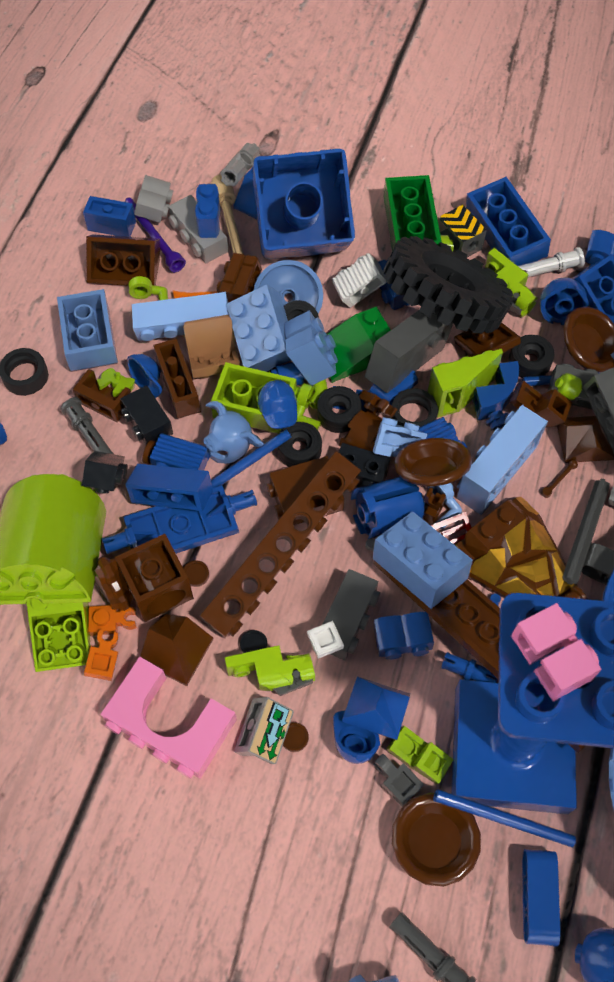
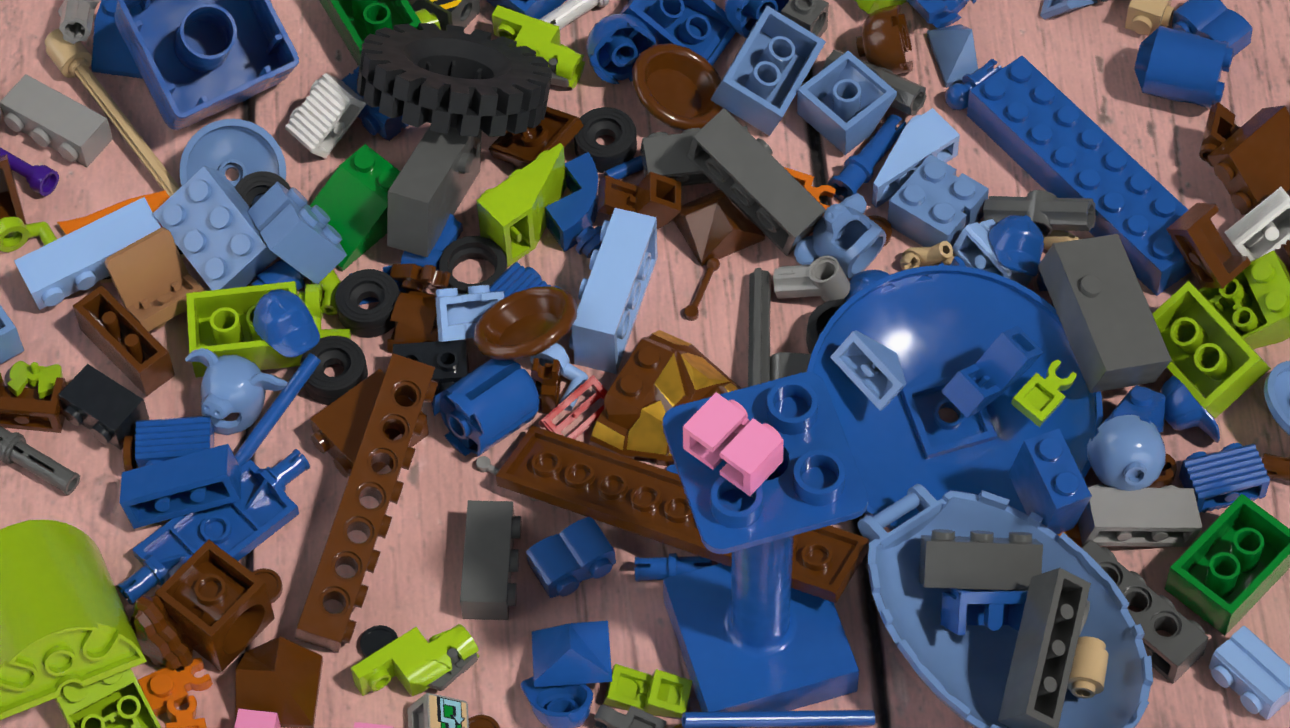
camera: 20 degrees left, 5 degrees down
(104, 471) = (82, 498): black brick -> none
(145, 372) = (72, 349): blue cap -> none
(207, 210) = (66, 90): blue brick -> none
(239, 276) = (152, 169): reddish brown brick -> none
(325, 639) = (473, 596): white tile -> none
(422, 559) = (558, 451): medium blue brick -> none
(569, 386) = (669, 161): lime piece -> none

